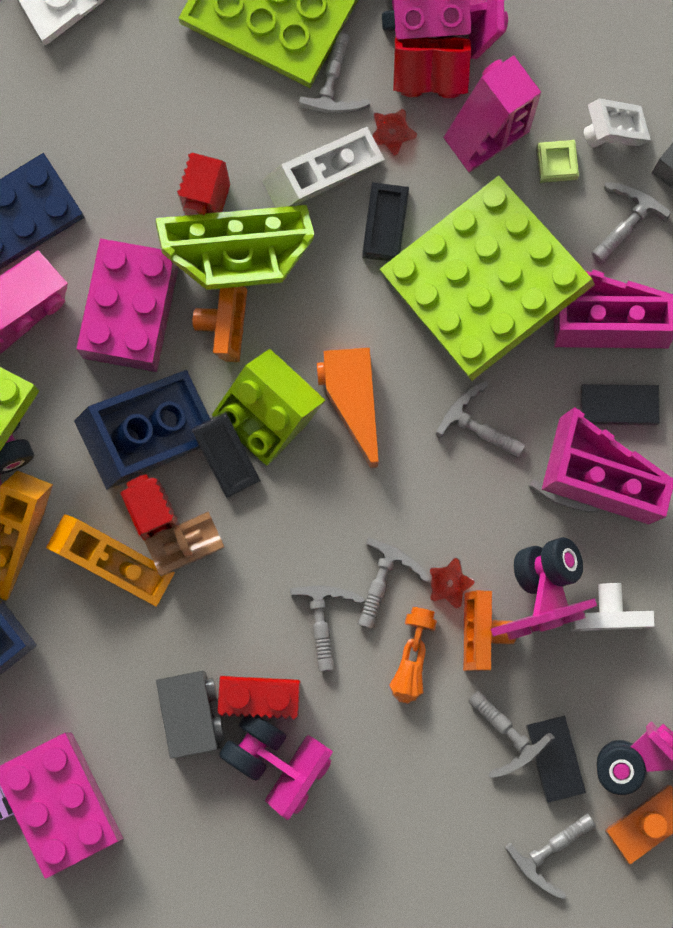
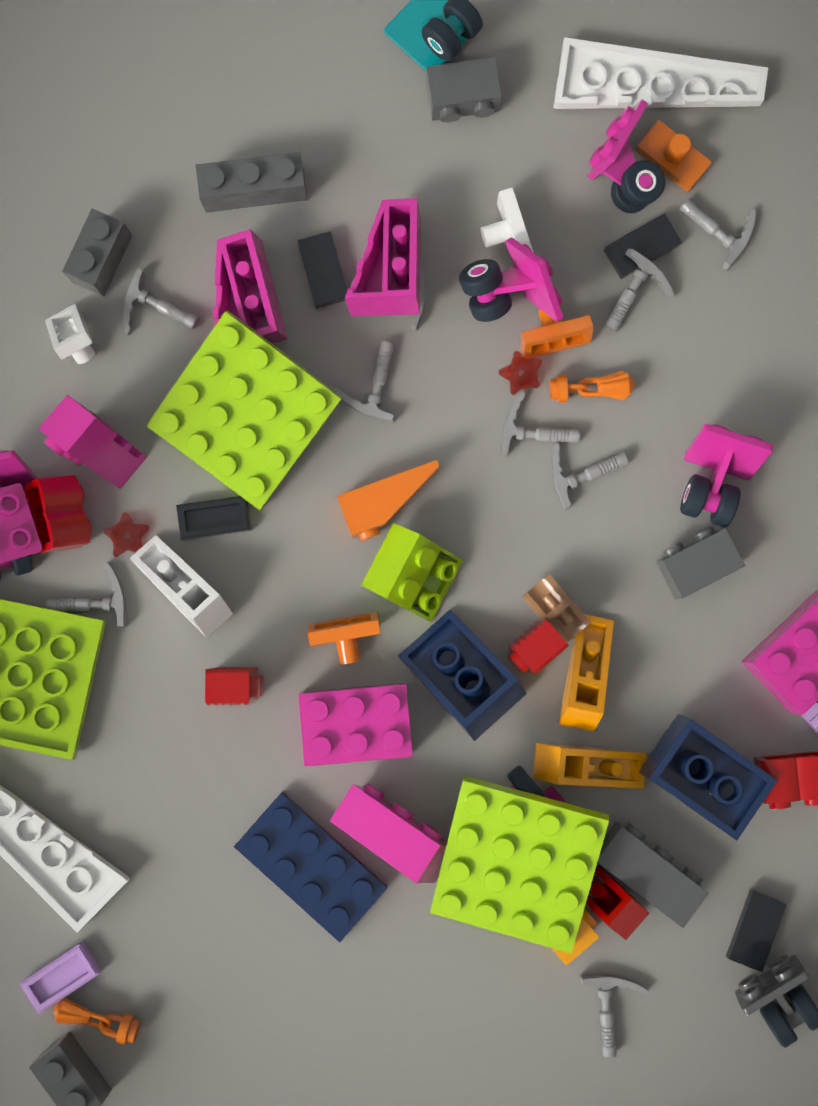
camera: 110 degrees left, 5 degrees up
(225, 454) = (465, 598): black tile -> none
(237, 245) = (277, 638): lime wedge -> none
(259, 697) = (668, 506): red brick -> none
(557, 161) = (116, 380): yellowish green tile -> none

